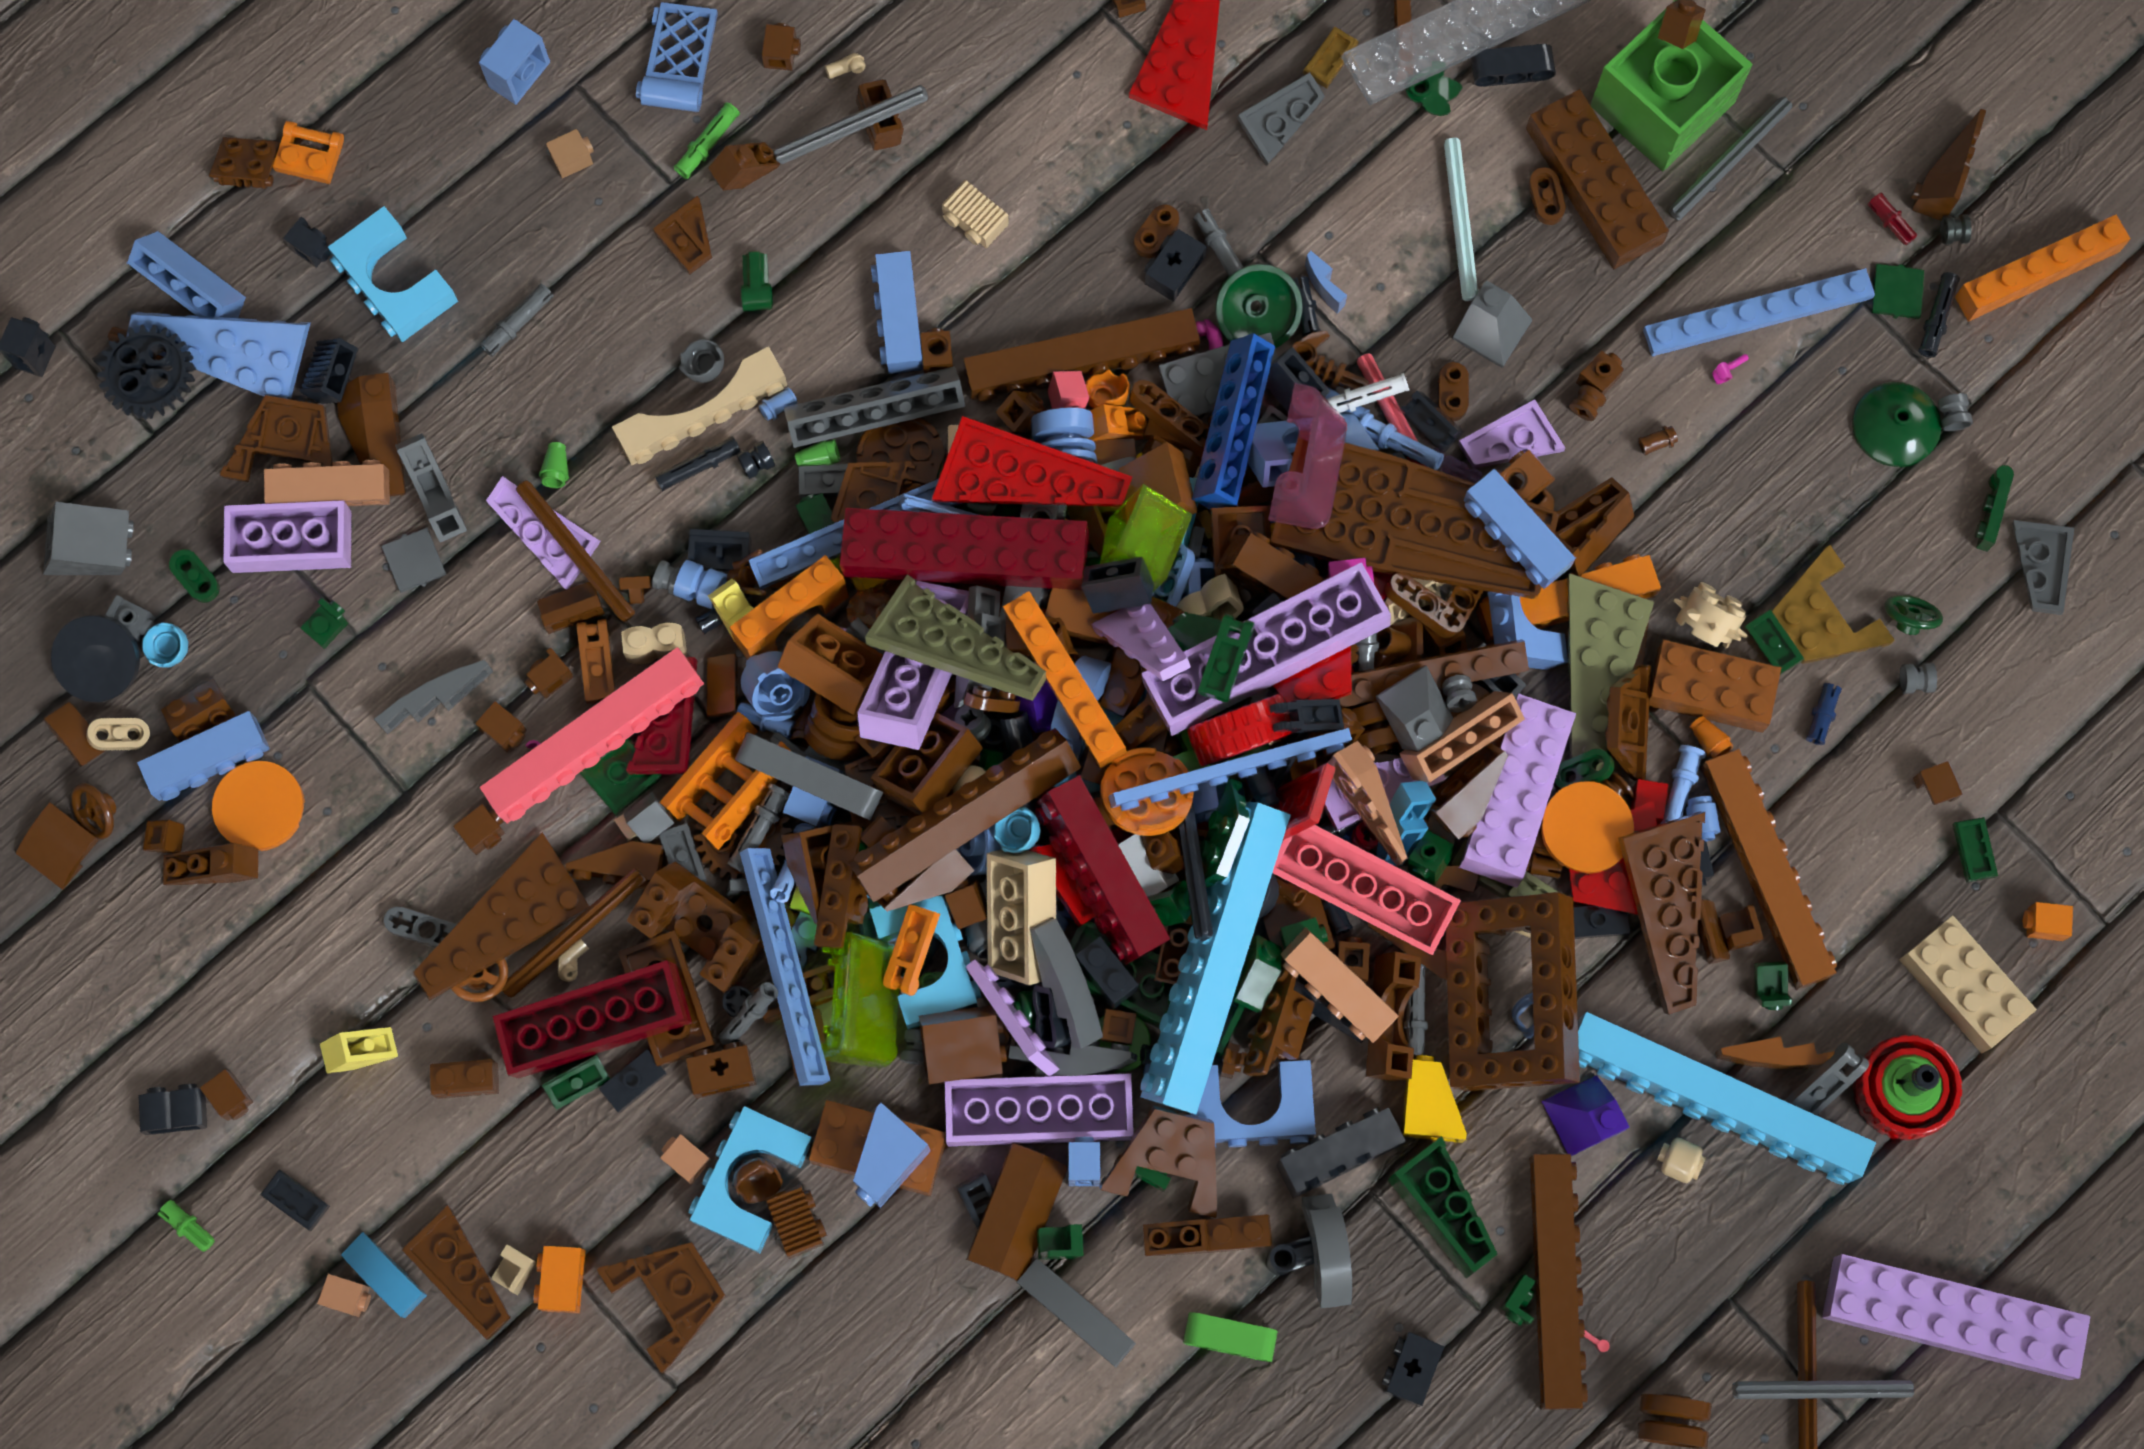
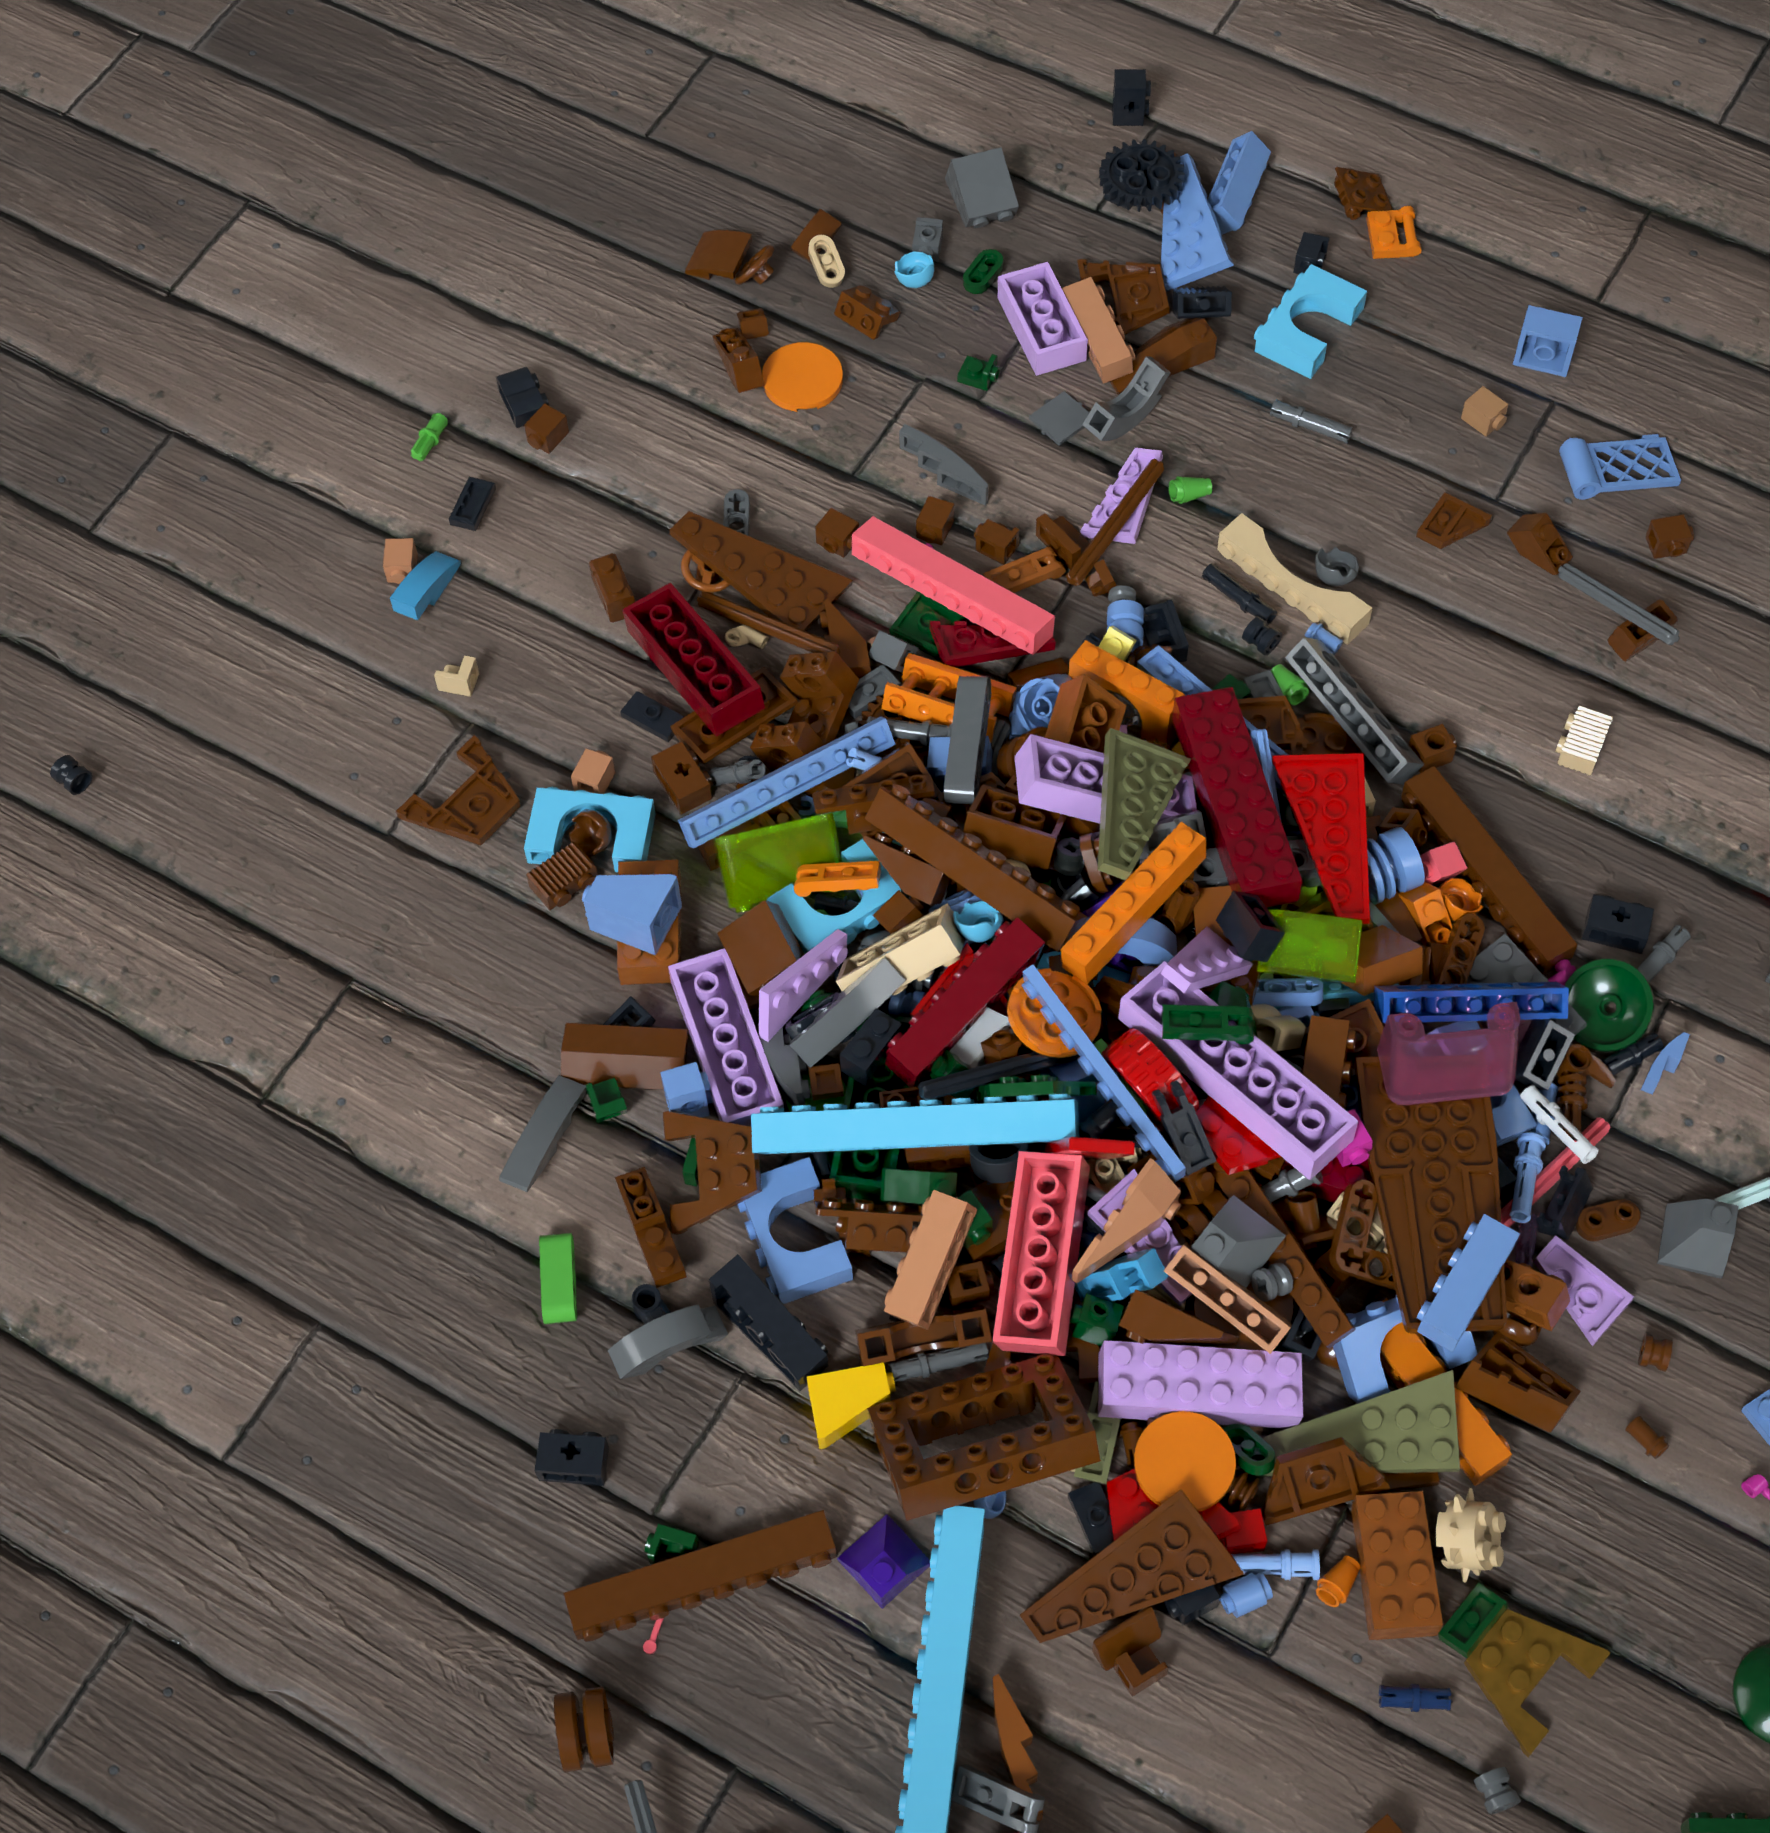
camera: 75 degrees right, 15 degrees down
(95, 658) = (884, 226): black piece -> none
(204, 756) = (830, 324): medium blue brick -> none
(358, 1049) = (615, 506): light yellow slope -> none
(455, 1269) = (445, 634): reddish brown wing -> none
(560, 1279) = (458, 712): orange brick -> none
(574, 1080) = (639, 672): dark green slope -> none
(645, 645) = (1052, 597): tan brick -> none
(699, 149) = (1555, 511): bright green pin -> none
(757, 290) = (1424, 590): dark green piece -> none
(852, 62) = (1683, 597): tan arm -> none
(899, 312) = (1460, 703): medium blue brick -> none
(1156, 229) = (1649, 897): reddish brown plate -> none
(1444, 1207) = (747, 1436): dark green wedge -> none
(1601, 381) = (1687, 1365): reddish brown brick -> none
(1681, 1160) = (866, 1670): tan head -> none
(1768, 869) = (1215, 1680): dark orange brick -> none
(1772, 985) = (1089, 1717): dark green bracket -> none
(1911, 618) = (1564, 1766): dark green piece -> none

